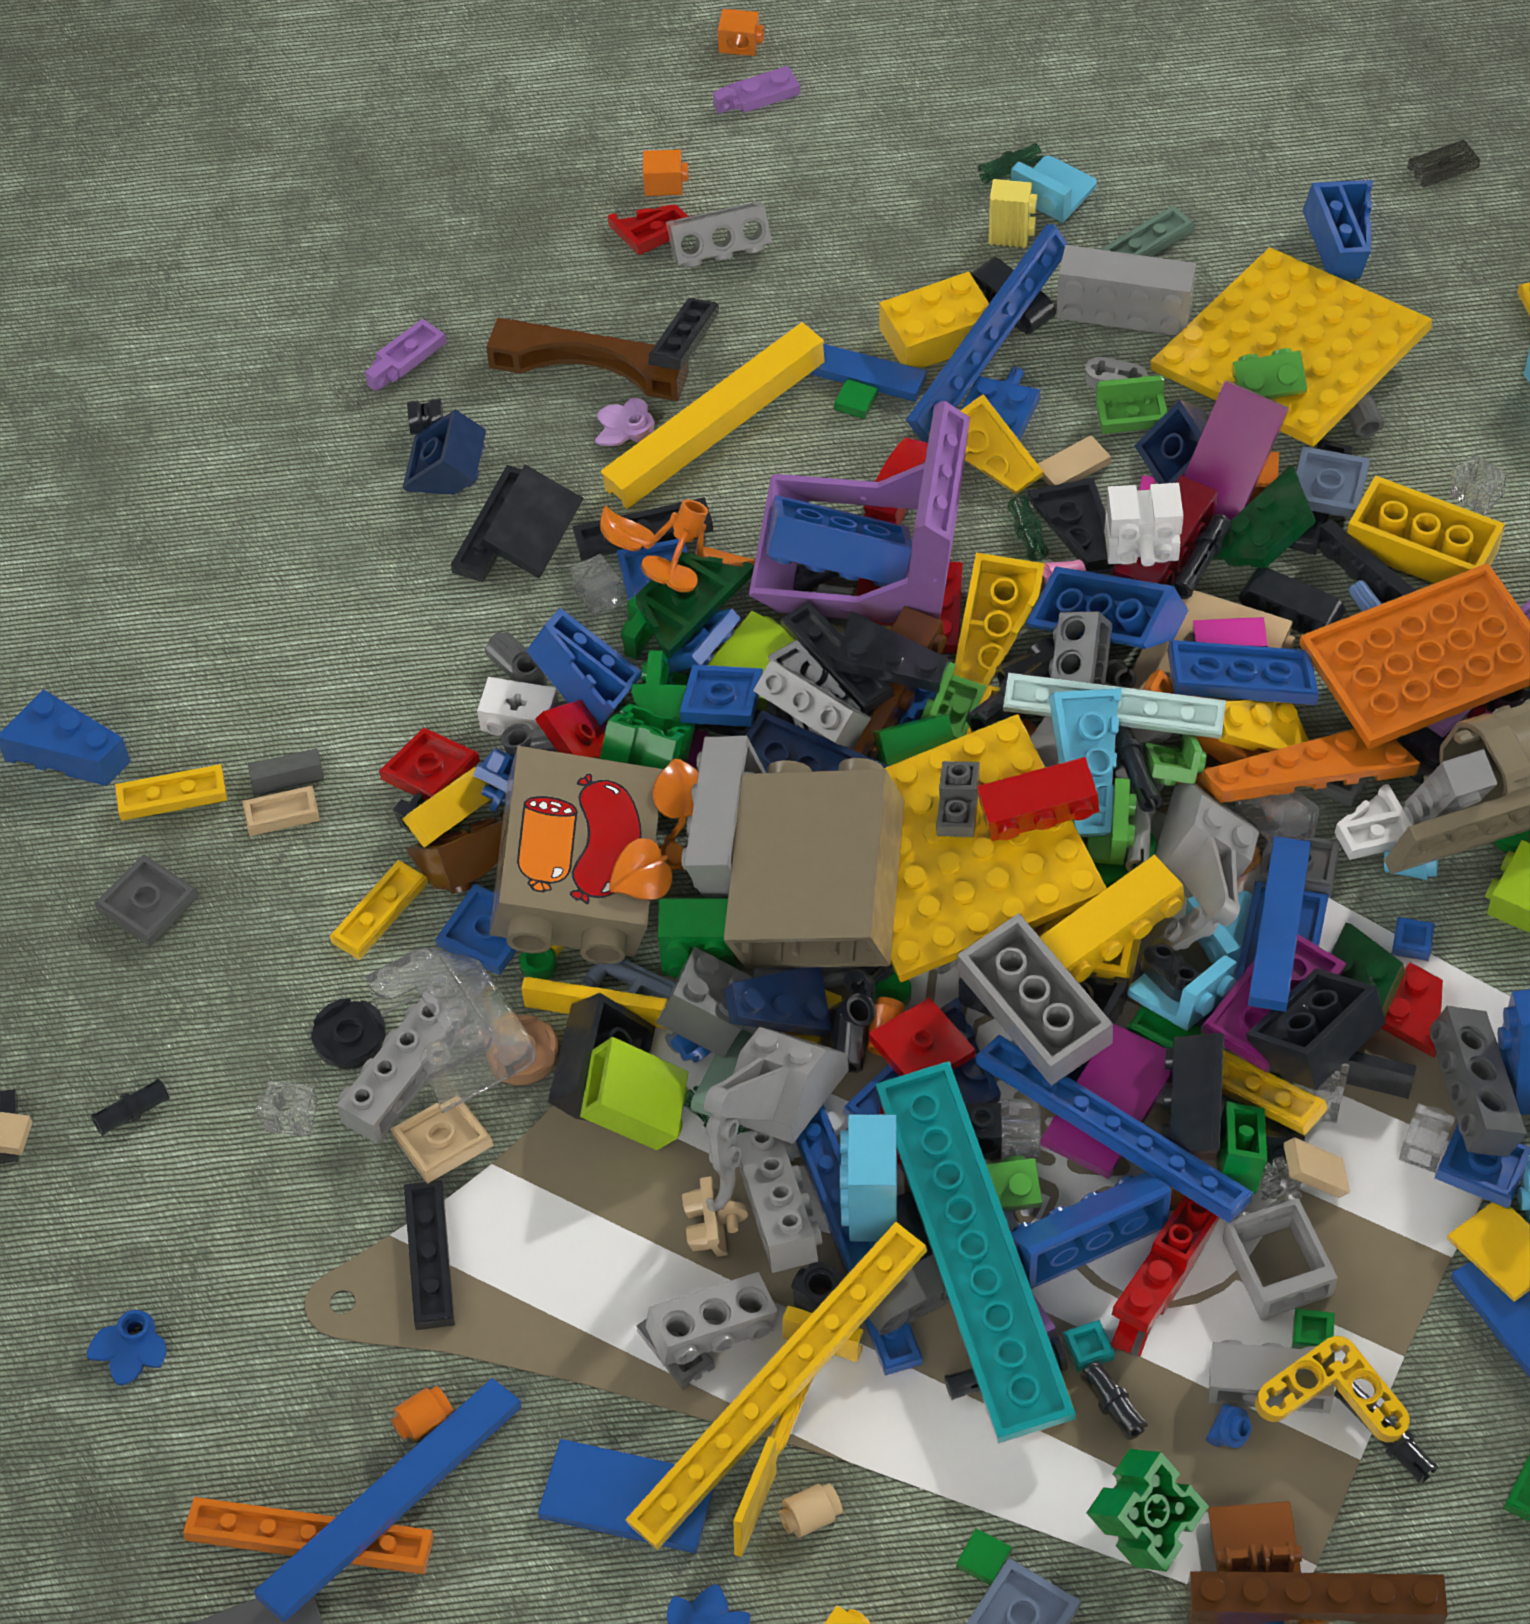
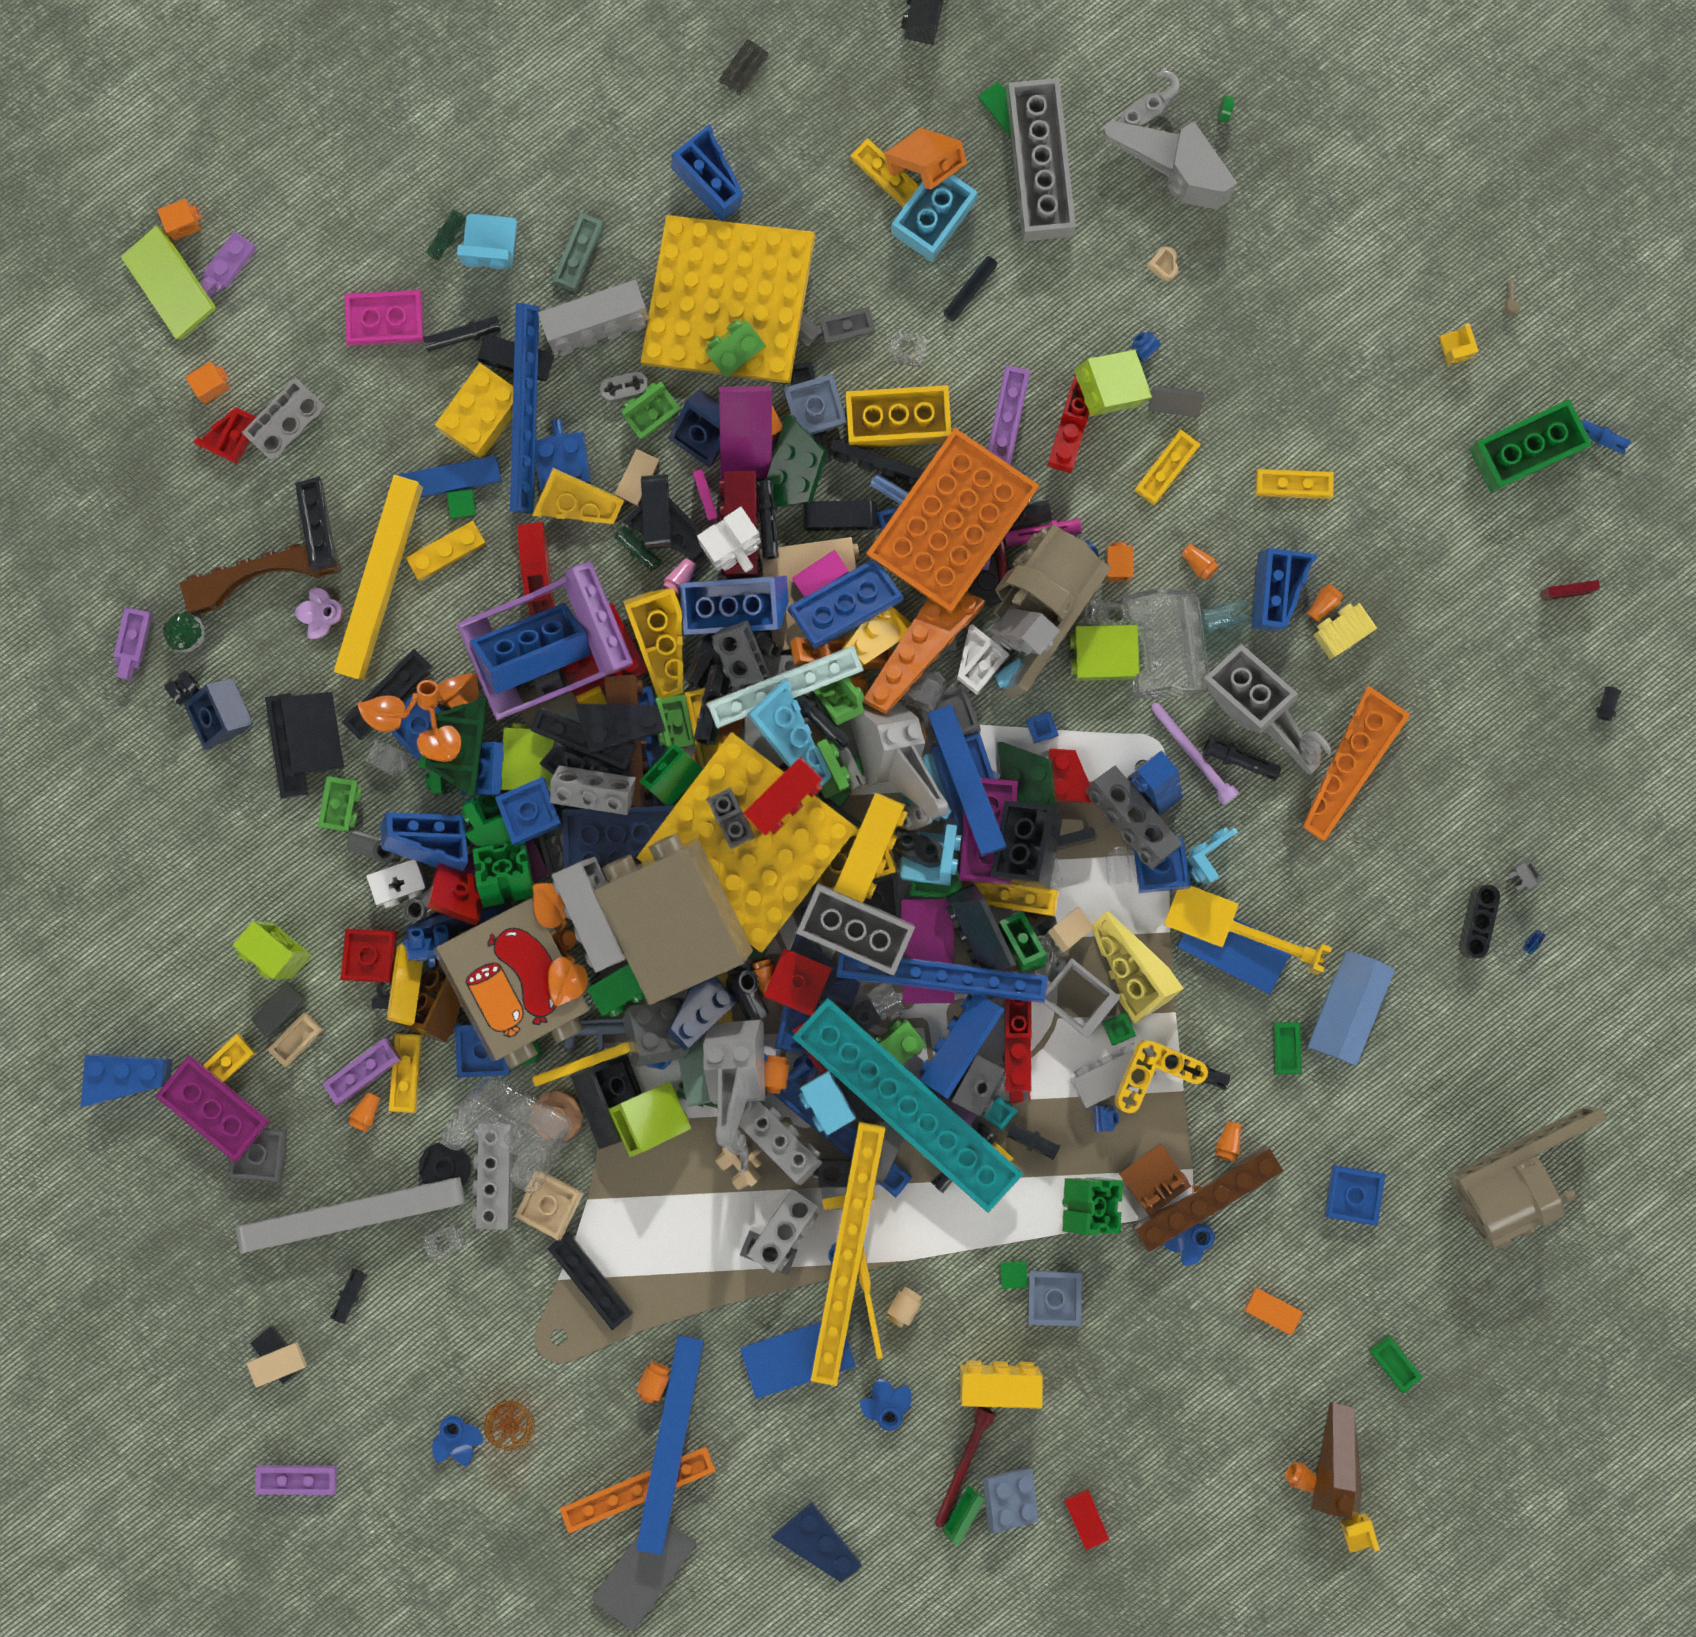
camera: 35 degrees left, 30 degrees up
(135, 822) = (212, 1108): none -> magenta tile
(203, 1016) = (350, 1215): none -> light grey beam
(205, 1350) = (509, 1425): none -> clear orange wheel
(297, 923) = (364, 1113): none -> orange cone
(326, 688) = (271, 951): none -> lime brick
(331, 876) = (362, 1071): none -> medium lavender plate
(466, 368) = (183, 632): none -> dark green piece
(510, 602) = (338, 804): none -> bright green bracket
(687, 76) = (168, 282): none -> lime tile
(807, 432) = (446, 551): none -> yellow plate
(824, 1131) = (776, 1073): none -> orange brick
(891, 204) = (384, 317): none -> dark pink tile
(965, 250) = (473, 330): none -> black pin
(1011, 213) = (477, 290): light yellow brick -> none
(1074, 492) = (656, 511): none -> black beam
(1080, 1278) = (977, 1085): none -> dark grey brick
(1380, 1277) = (1139, 974): none -> light yellow wedge
(1388, 1551) = (1229, 1142): none -> orange cone
(1416, 432) = (847, 325): none -> dark grey plate

